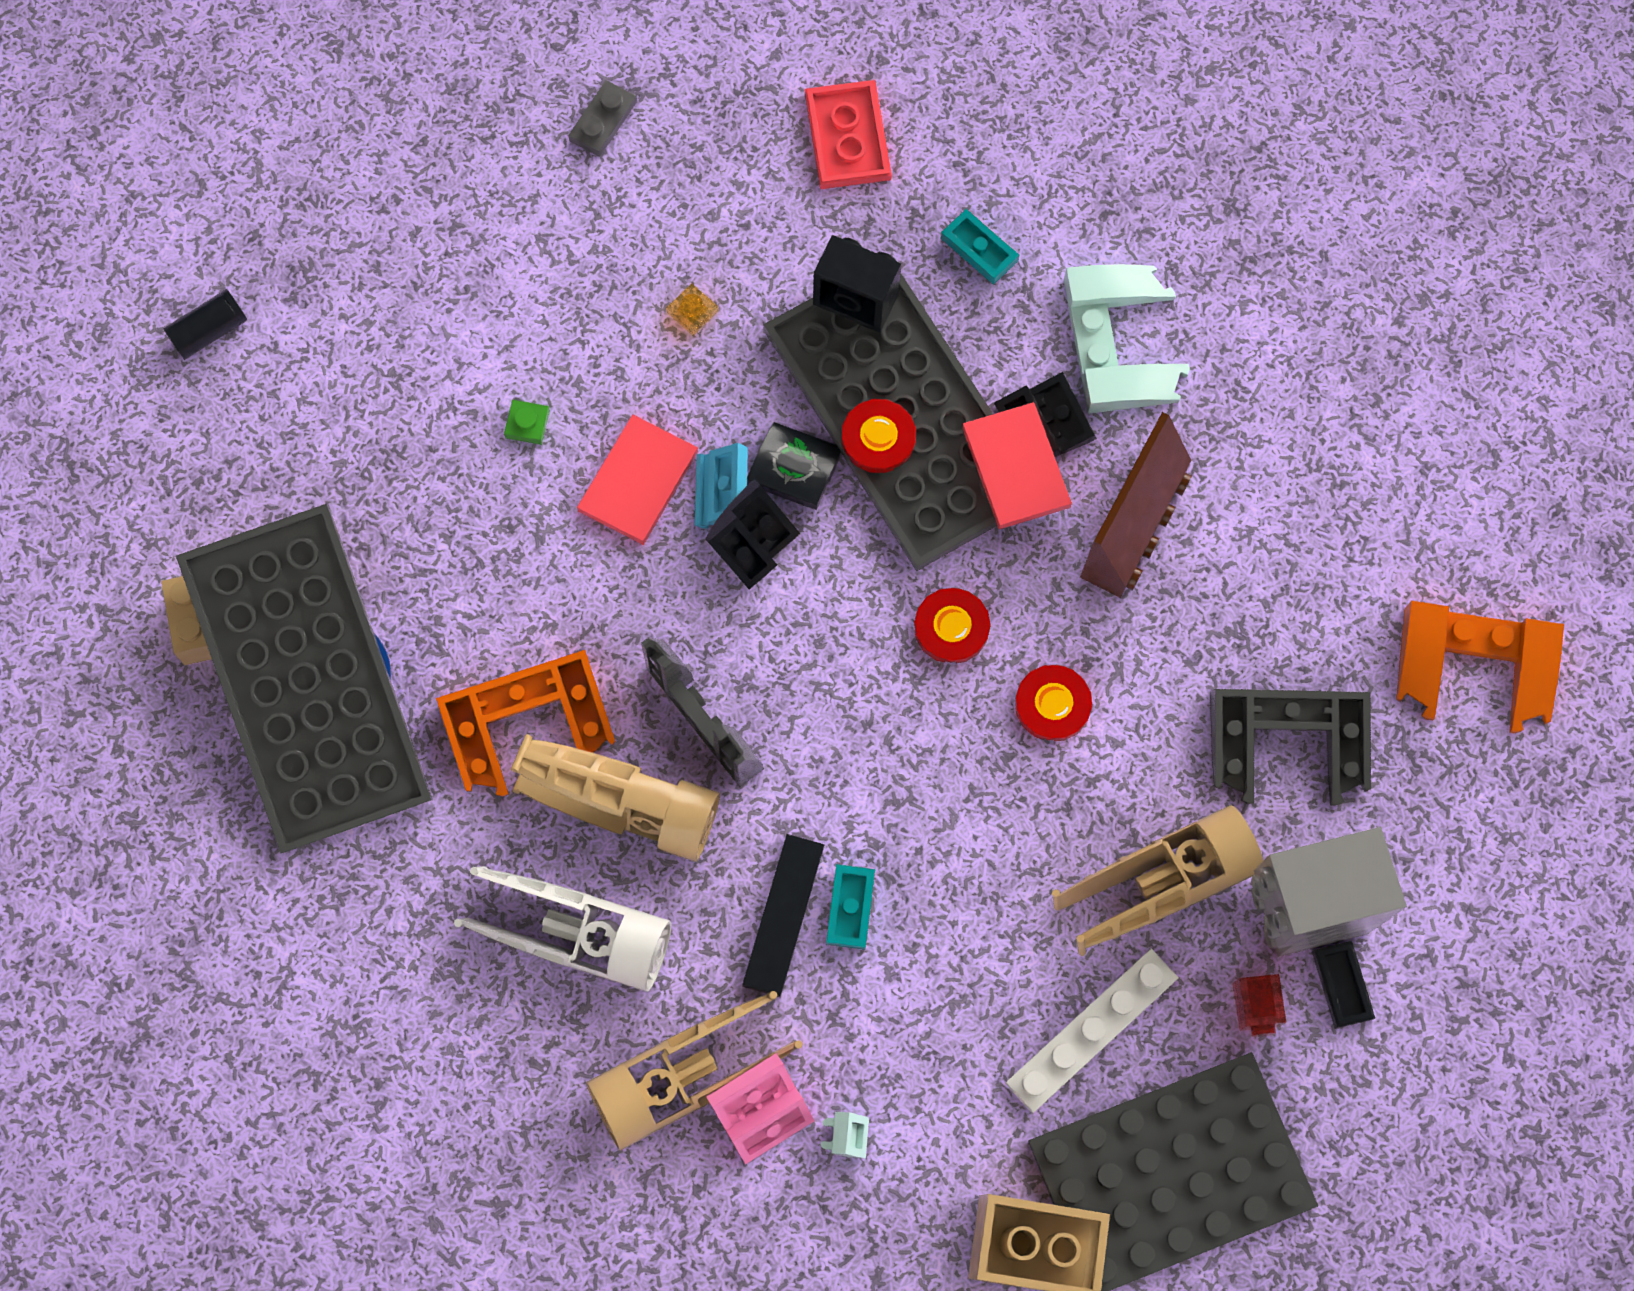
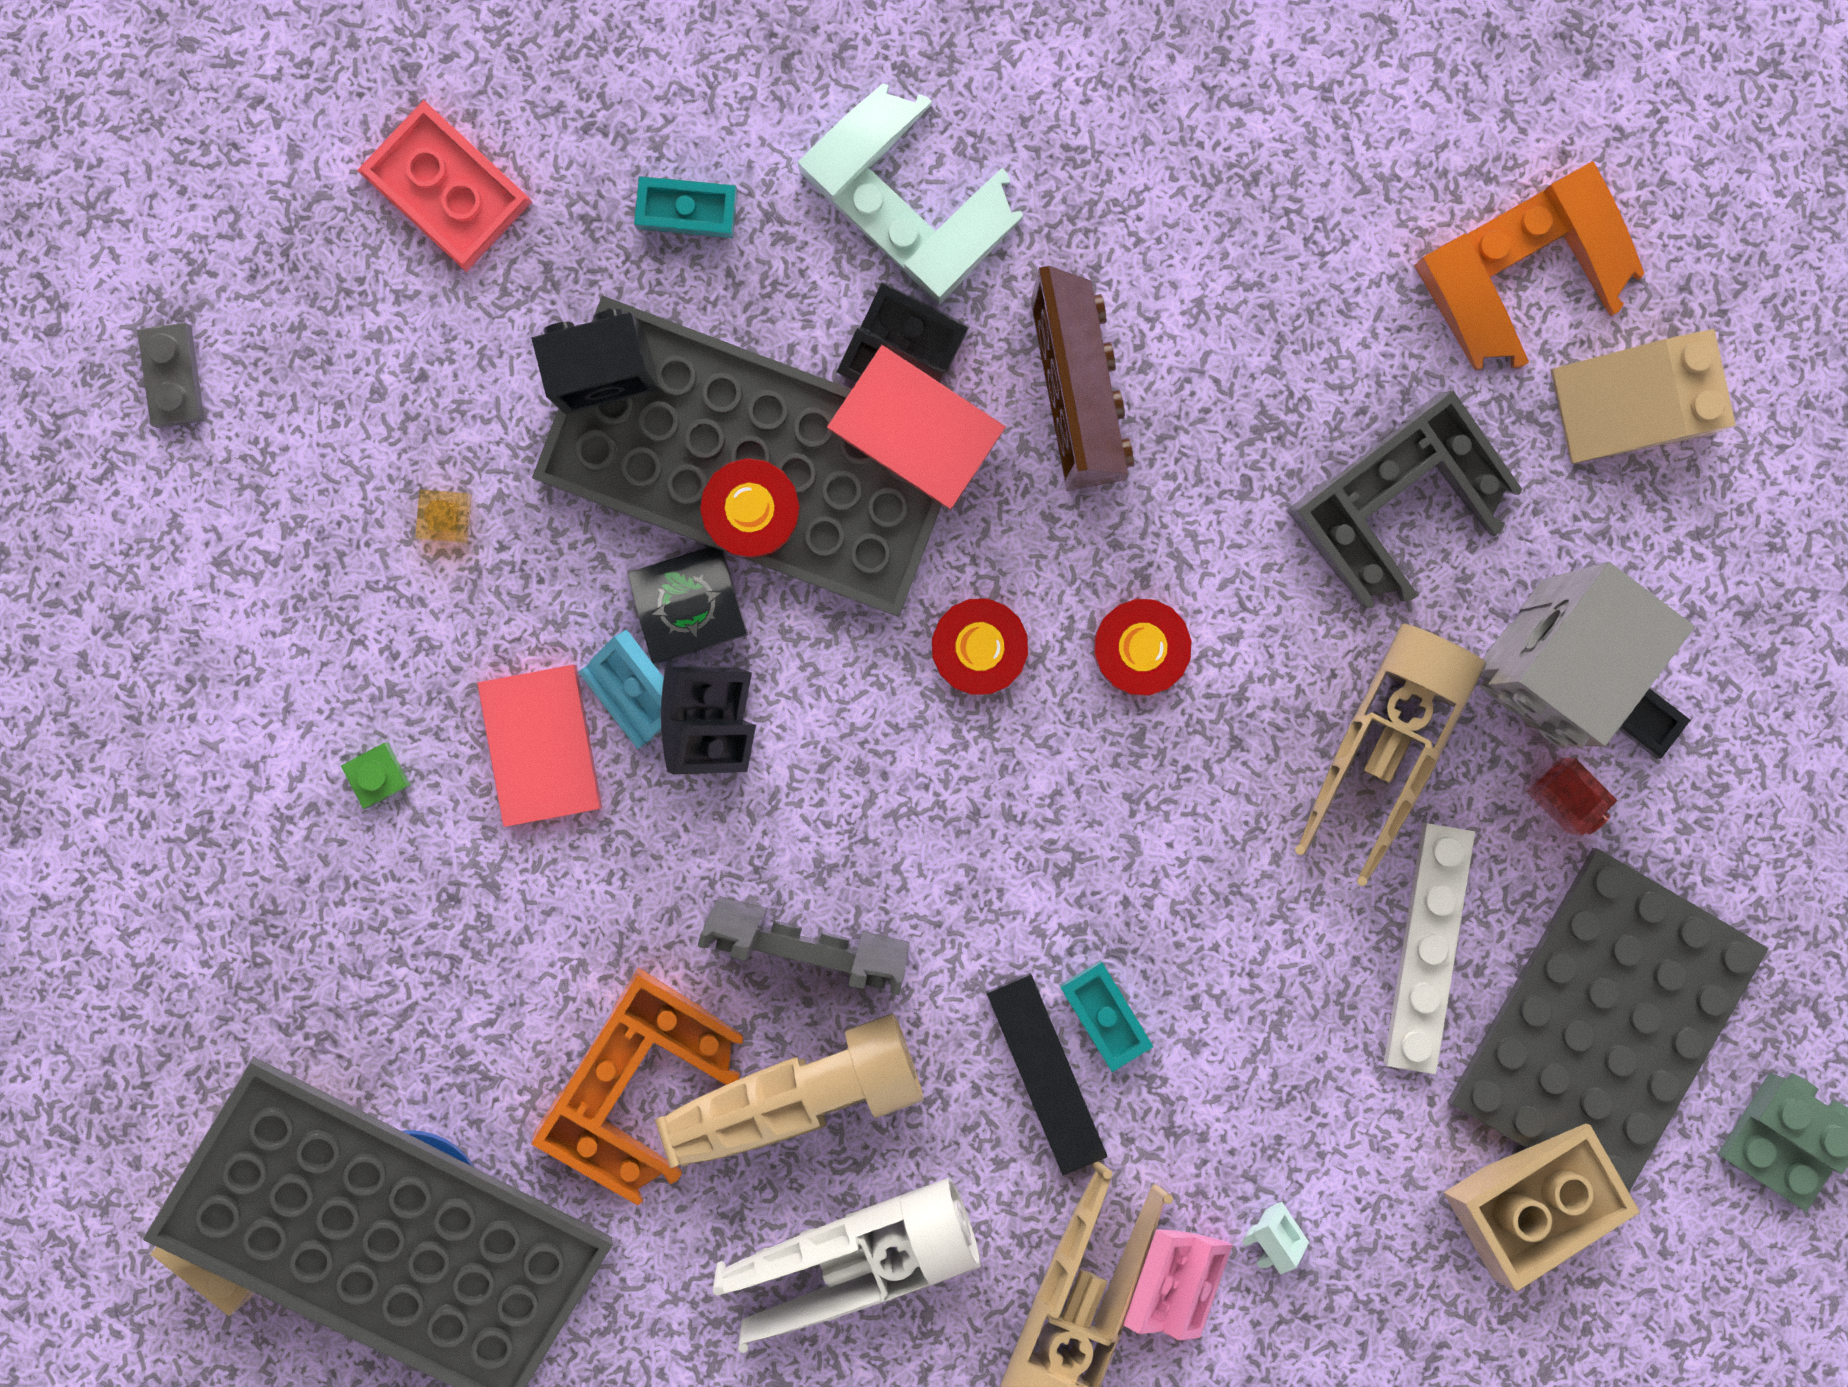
camera: 35 degrees left, 15 degrees up
(1492, 792) = (1643, 397): none -> tan slope

